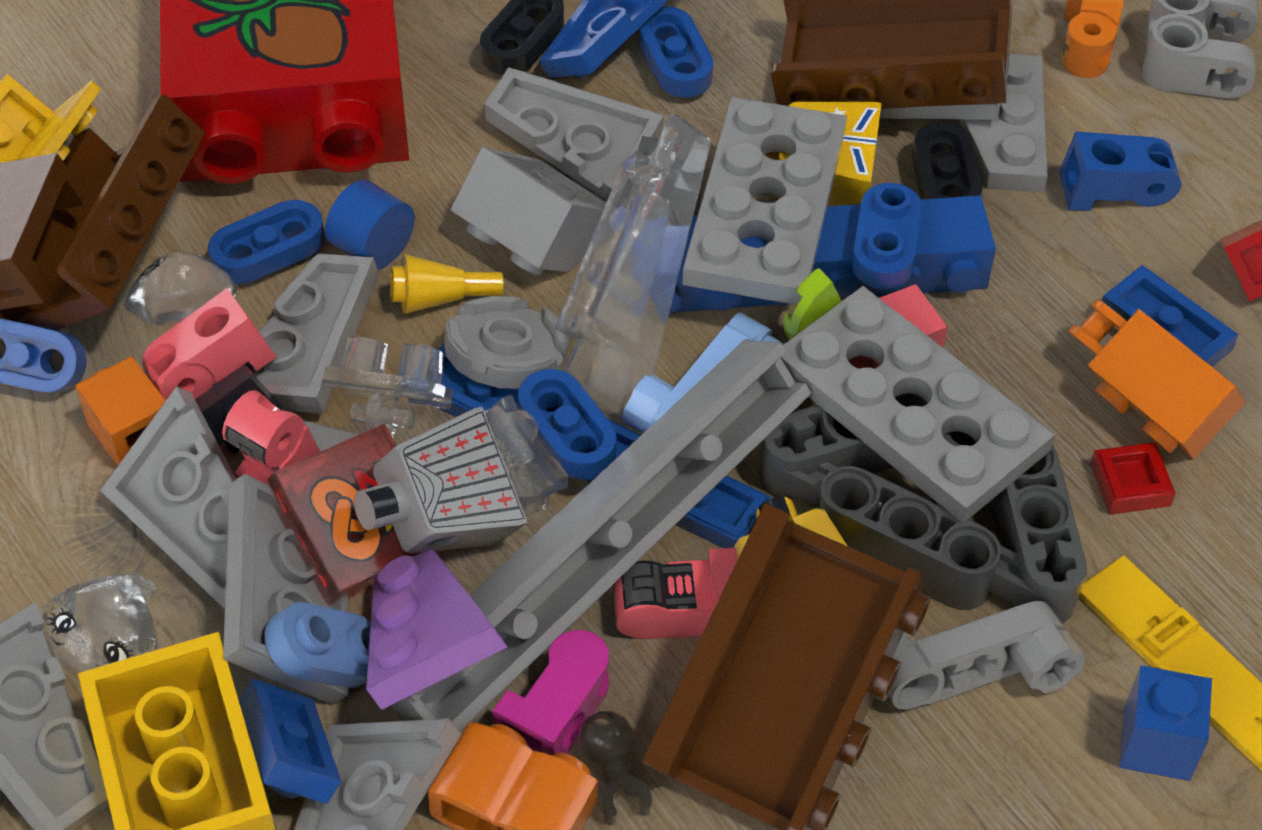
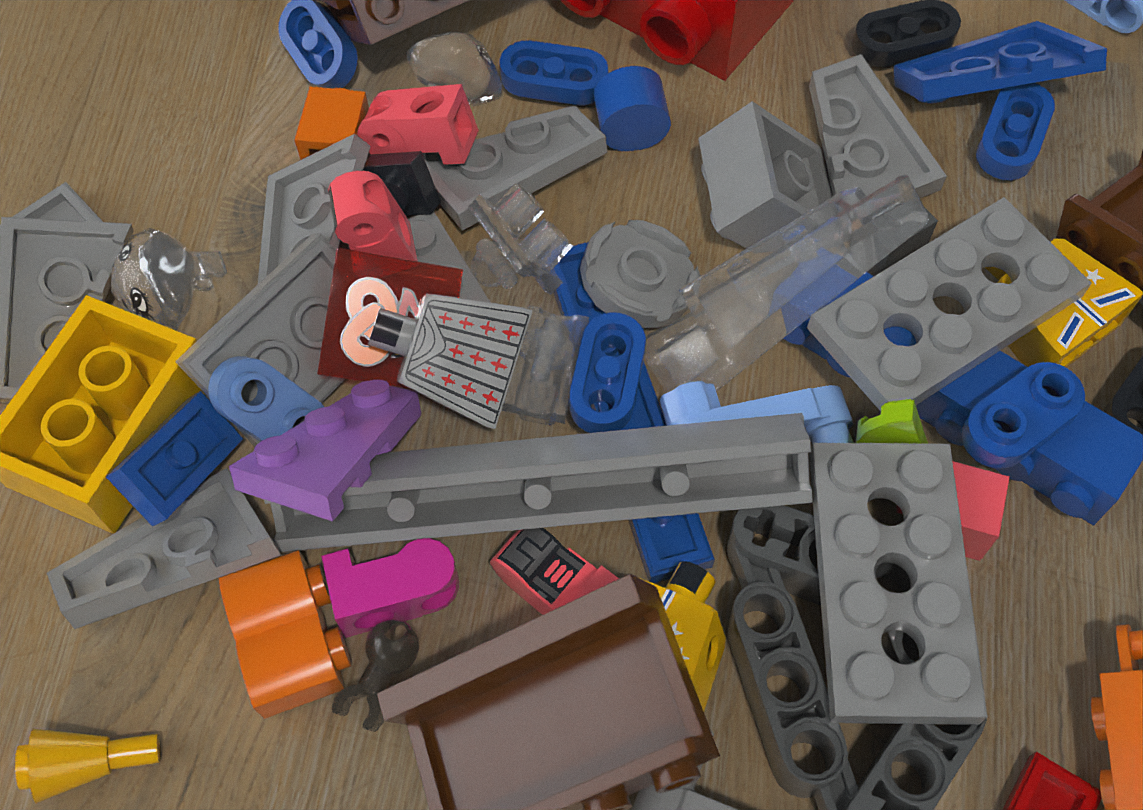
camera: 45 degrees right, 10 degrees up
(428, 284) = (631, 185): yellow cone -> none

